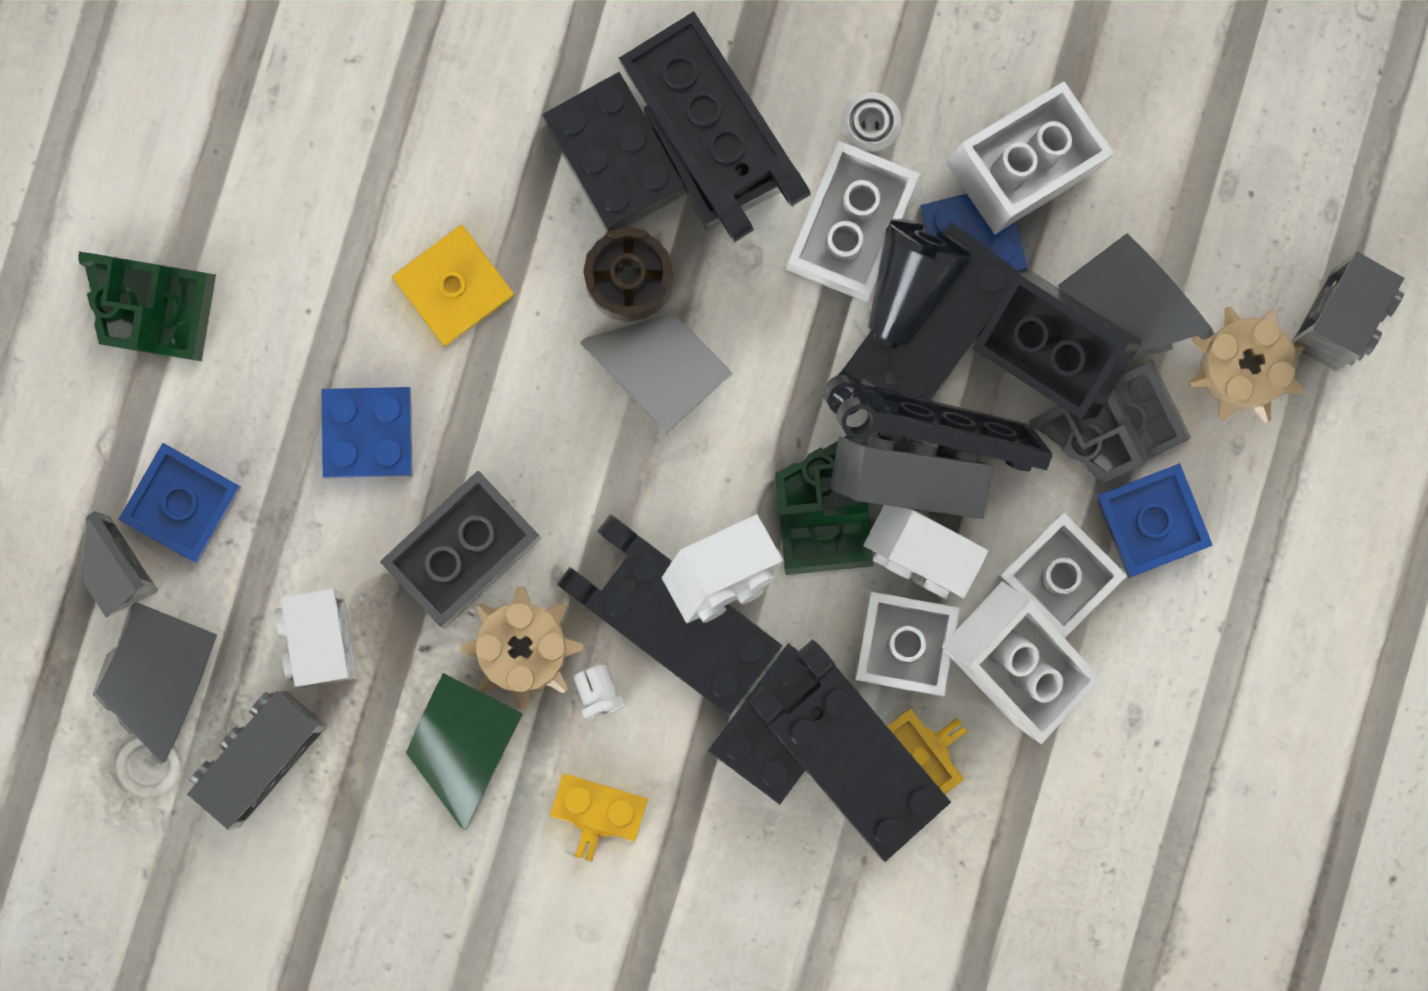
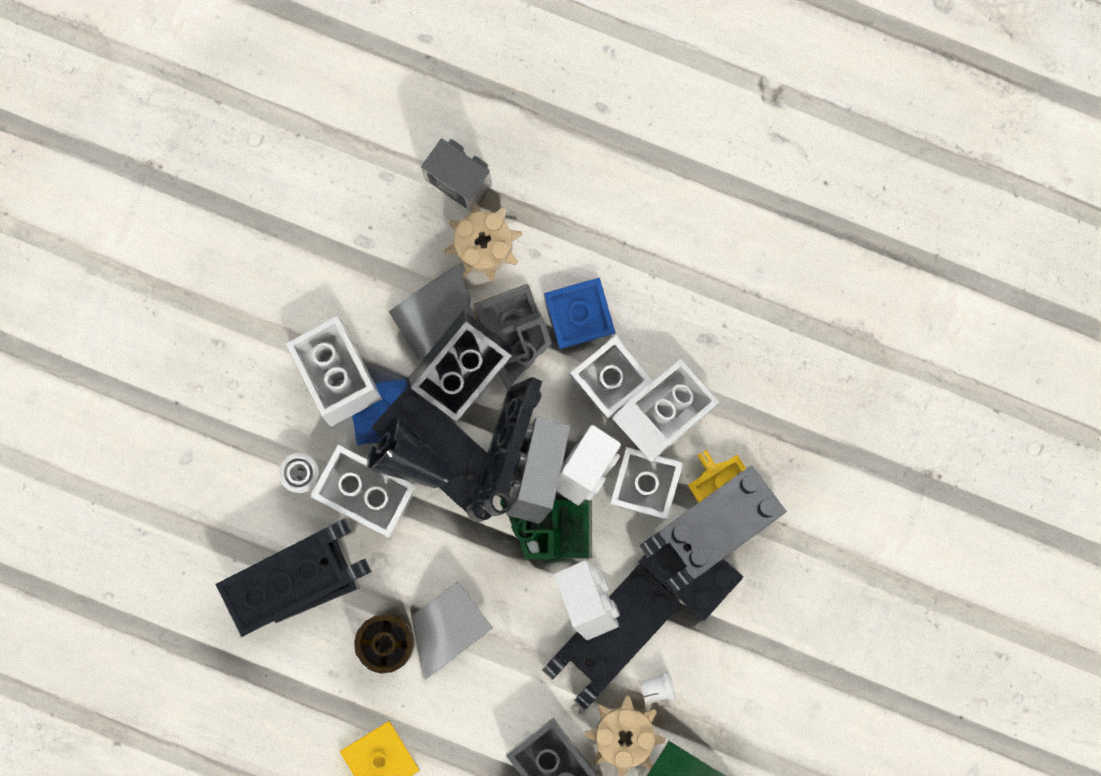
camera: 80 degrees left, 0 degrees up
(597, 812) = (736, 696): yellow plate -> none
(614, 153) = (302, 645): black brick -> none

